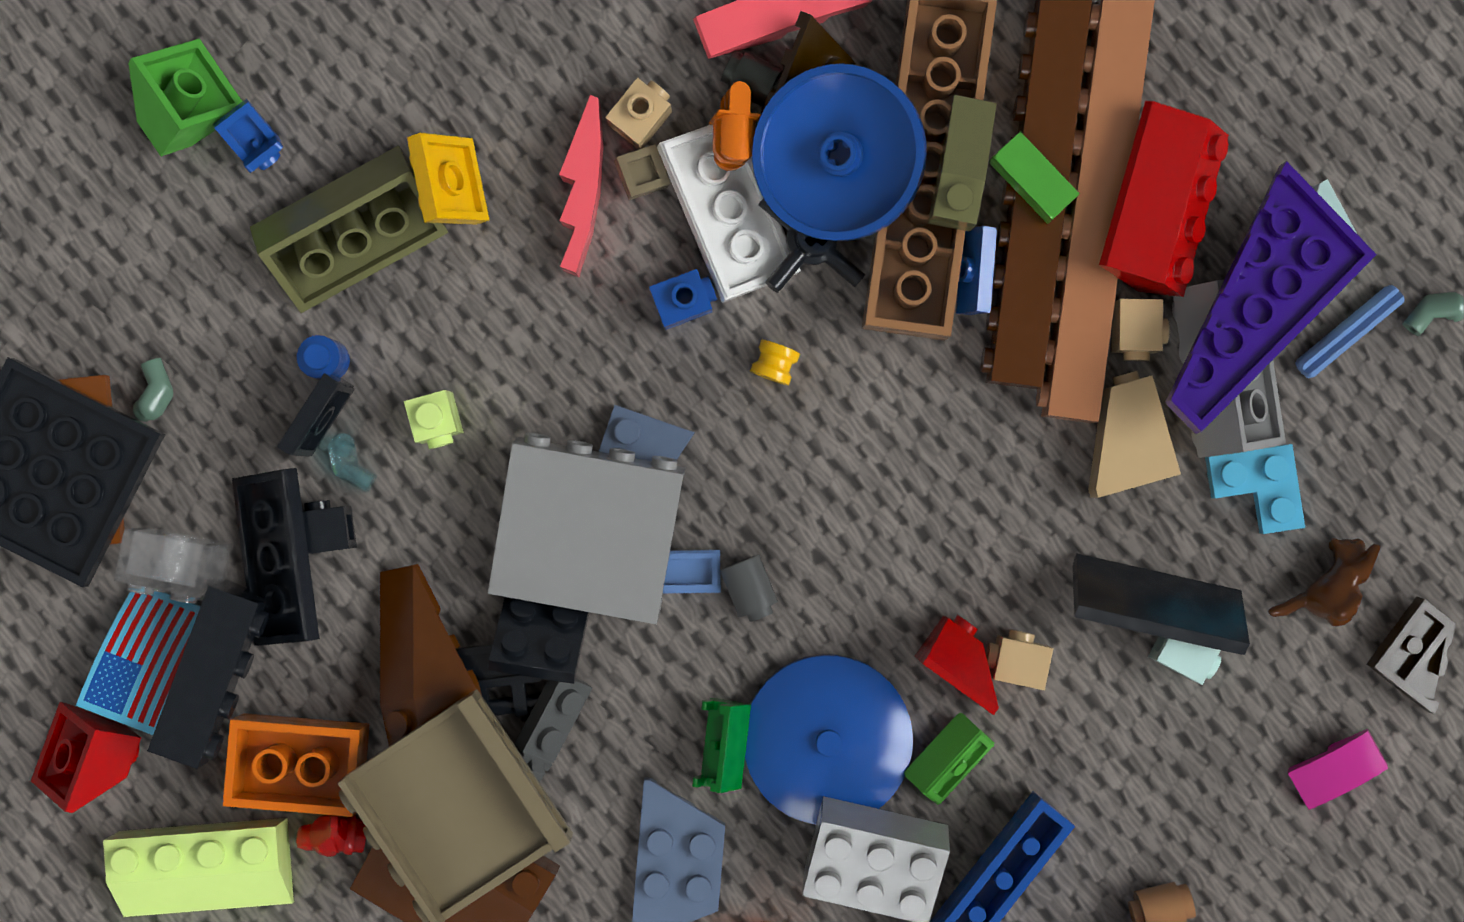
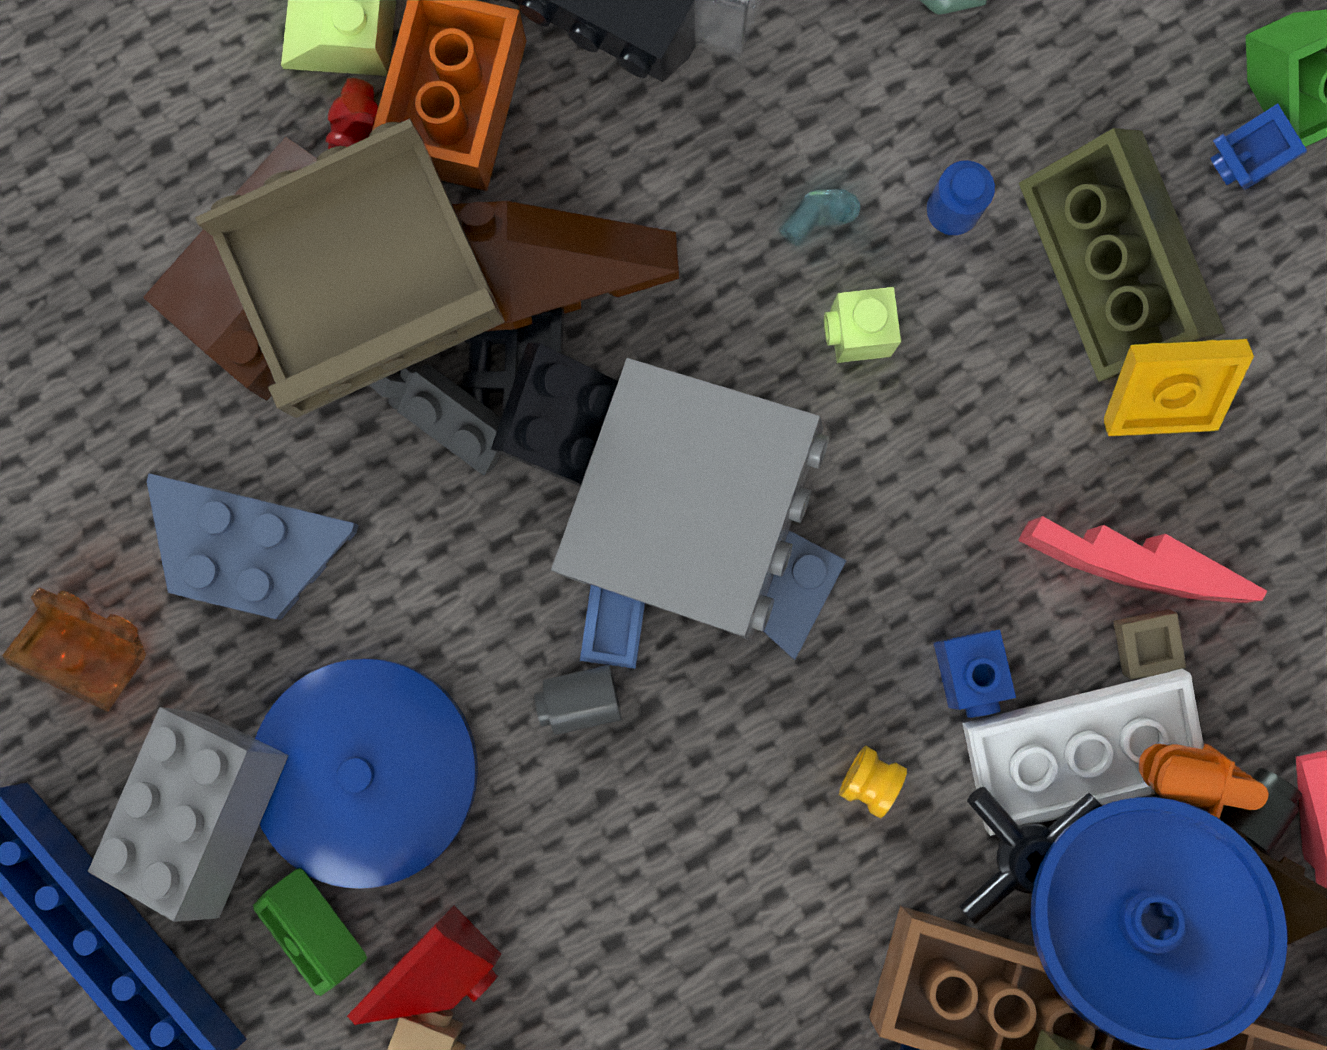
camera: 100 degrees right, 5 degrees down
(276, 554) = (718, 103): black tile -> none
(316, 416) = (889, 175): black tile -> none
(328, 527) = (742, 166): black brick -> none
(640, 112) = (1231, 653): tan brick -> none
(724, 745) = (378, 633): green hinge -> none

